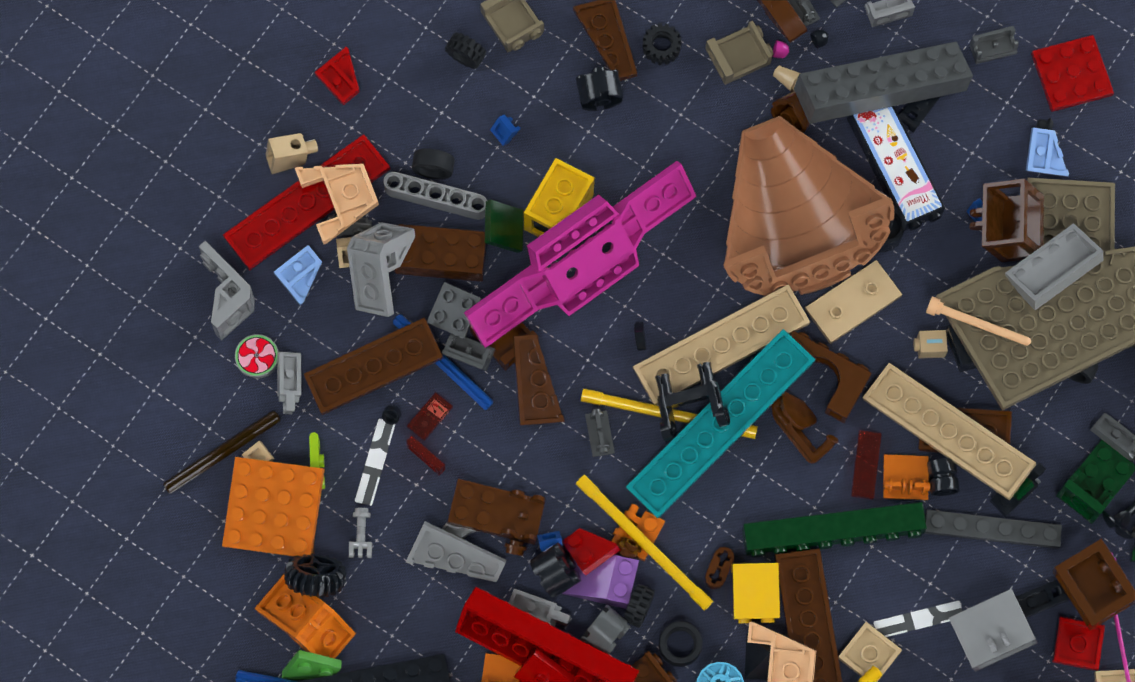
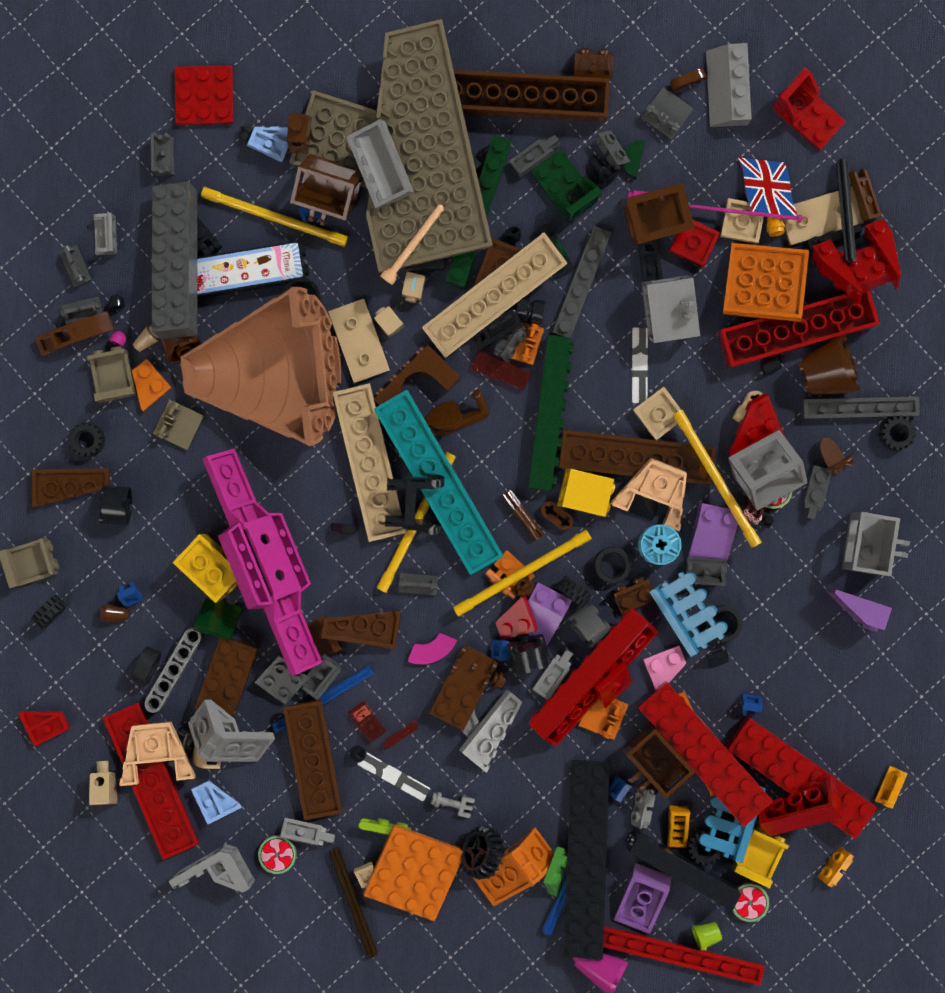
camera: 70 degrees left, 15 degrees up
(480, 117) = (113, 613): none -> reddish brown cone
(527, 468) = (432, 651): none -> dark pink tile
(705, 134) = (178, 424): none -> dark tan hinge
(709, 529) = (522, 515): none -> reddish brown axle
(740, 94) = (149, 384): none -> orange wing
(884, 326) = (388, 321): none -> tan brick
(892, 462) = (507, 348): none -> dark grey hinge
(910, 445) = (497, 330): none -> black plate
(960, 243) = (218, 197): none -> yellow piece
(1023, 439) = (513, 234): none -> black hinge
(1062, 396) = (488, 183): none -> dark green brick
(1064, 176) = (299, 132): none -> reddish brown torso

